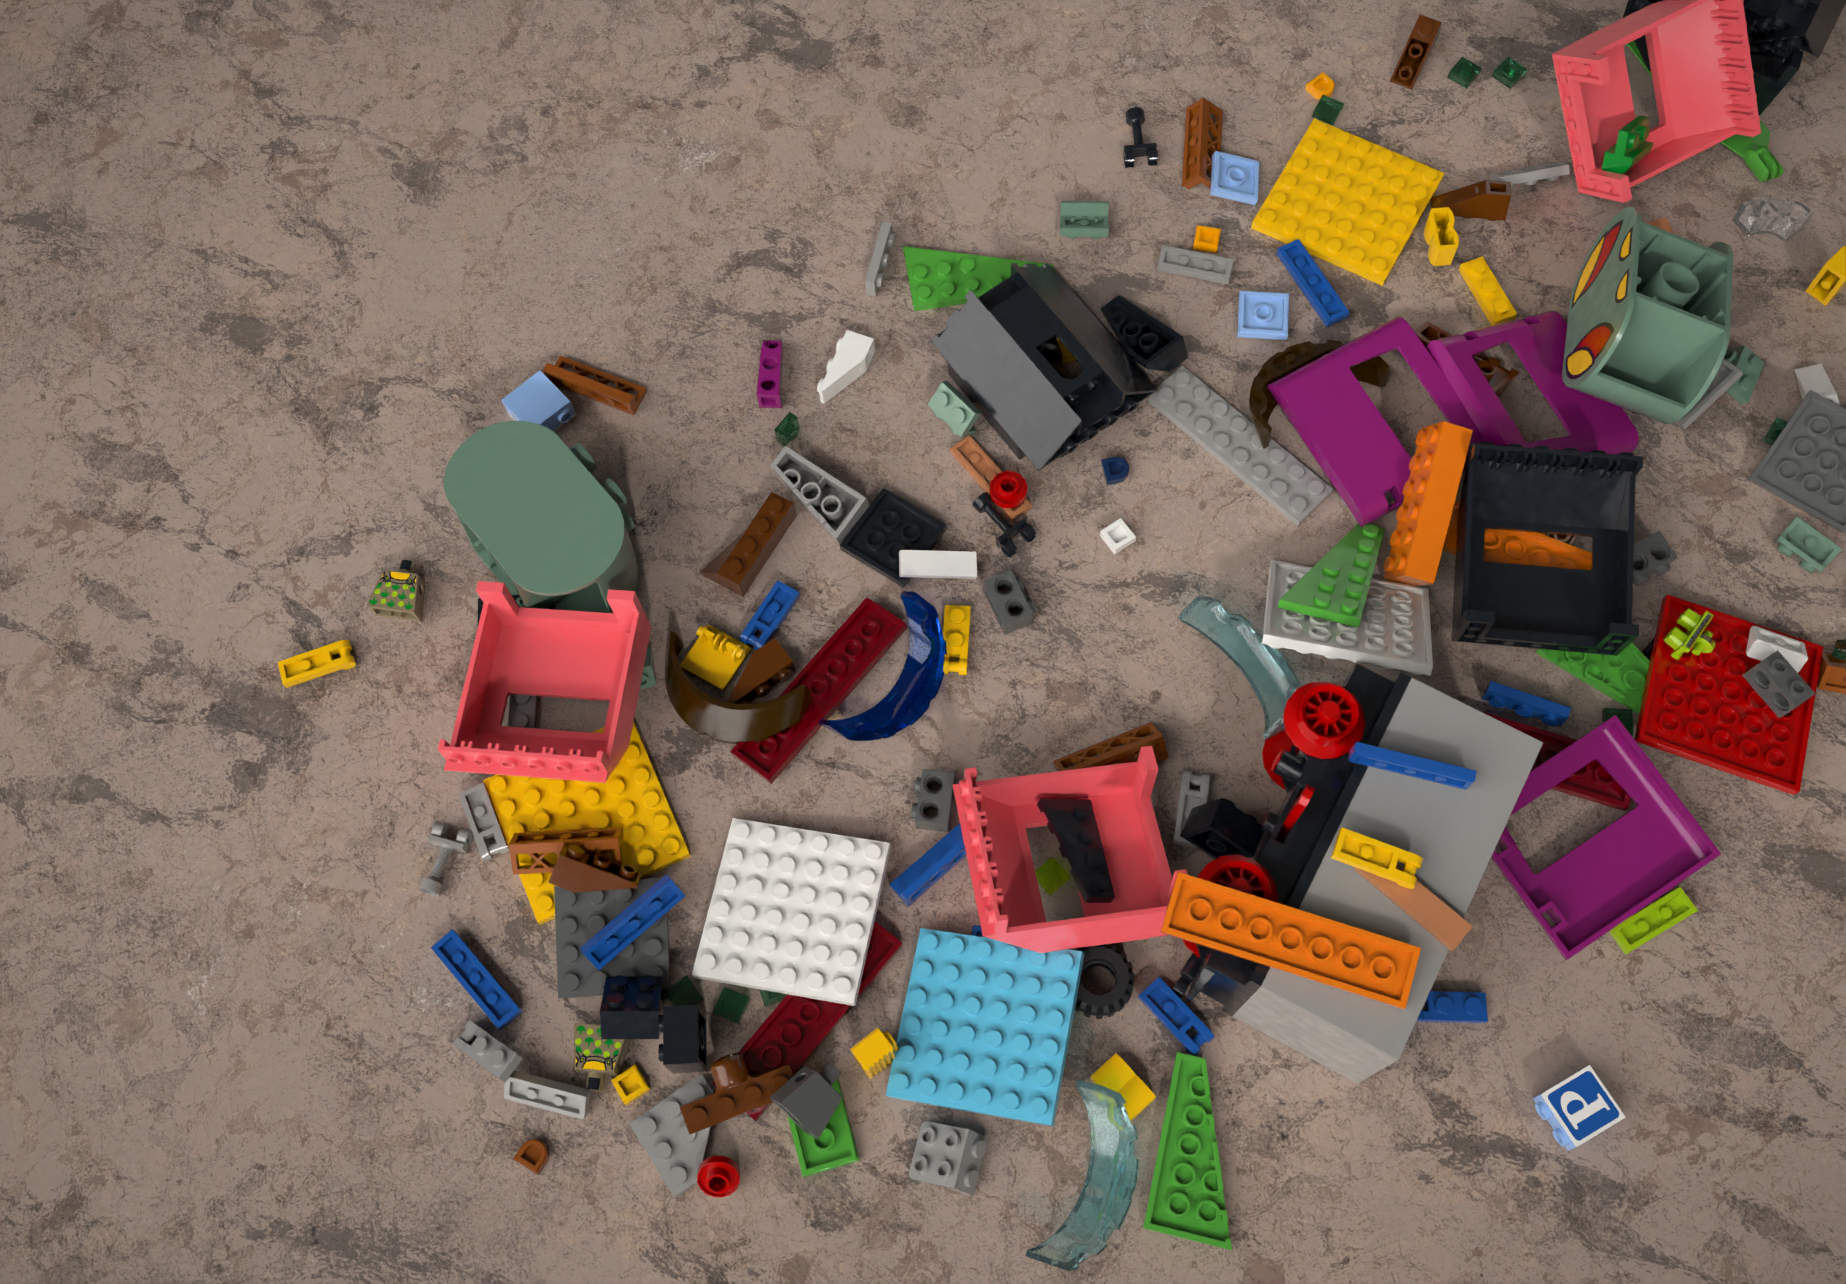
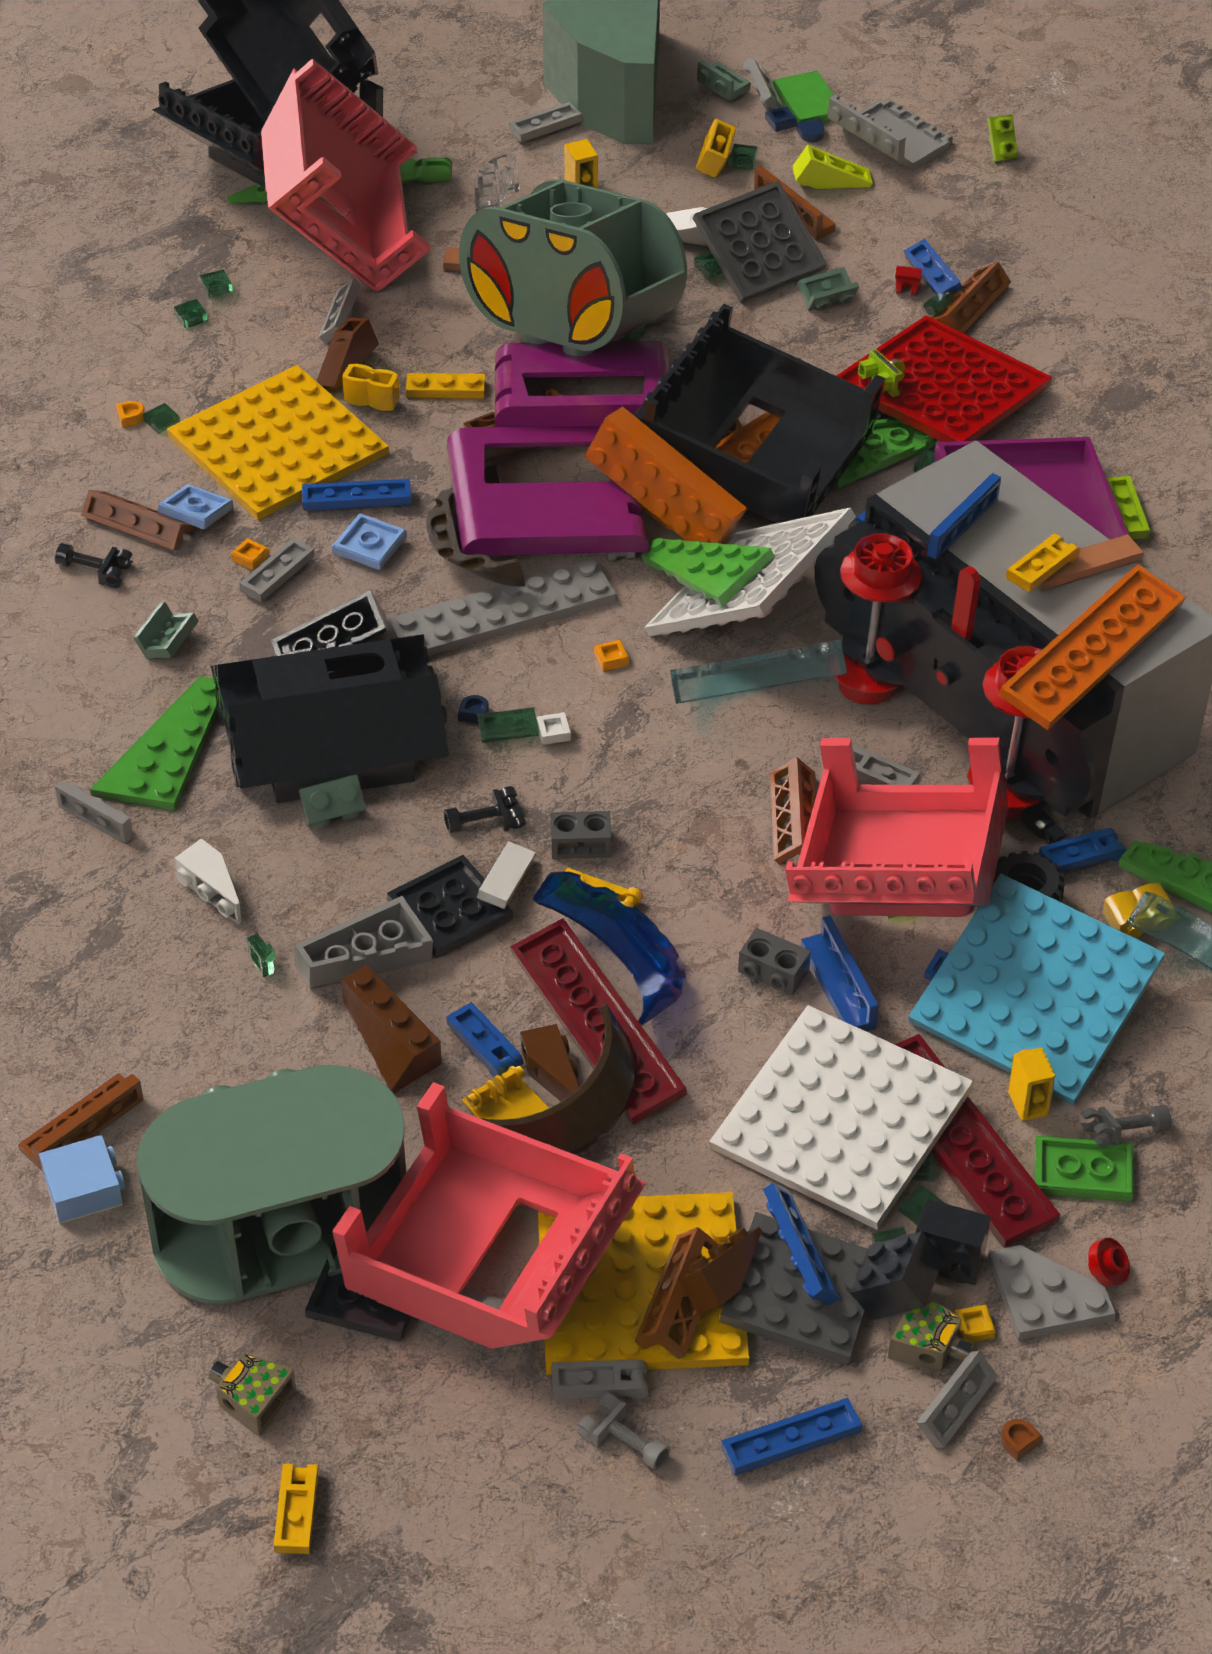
camera: 75 degrees left, 20 degrees down
(488, 1051) = (885, 1439): light grey plate -> none
(734, 1093) = (1028, 1212): reddish brown plate -> none
(770, 374) = (179, 948): magenta leg -> none
(810, 1098) = (1062, 1147): dark grey torso -> none
(871, 1120) = (1104, 1122): none -> dark grey bar
(948, 1157) = (1155, 1068): light grey bracket -> none
(983, 471) = (421, 808): nougat tile -> none
(1008, 489) = (456, 786): red plate -> none
(1081, 844) = (889, 847): black wing -> none
(1105, 500) = (507, 725): none -> clear green plate
(1222, 830) = (920, 740): black brick -> none
(1228, 547) = (611, 655): none -> light orange tile
(1416, 51) = (143, 331): reddish brown slope -> none
(1629, 147) = (376, 230): green brick -> none
(1764, 643) = (918, 337): white slope -> none
(1778, 684) = (953, 343): dark grey brick -> none

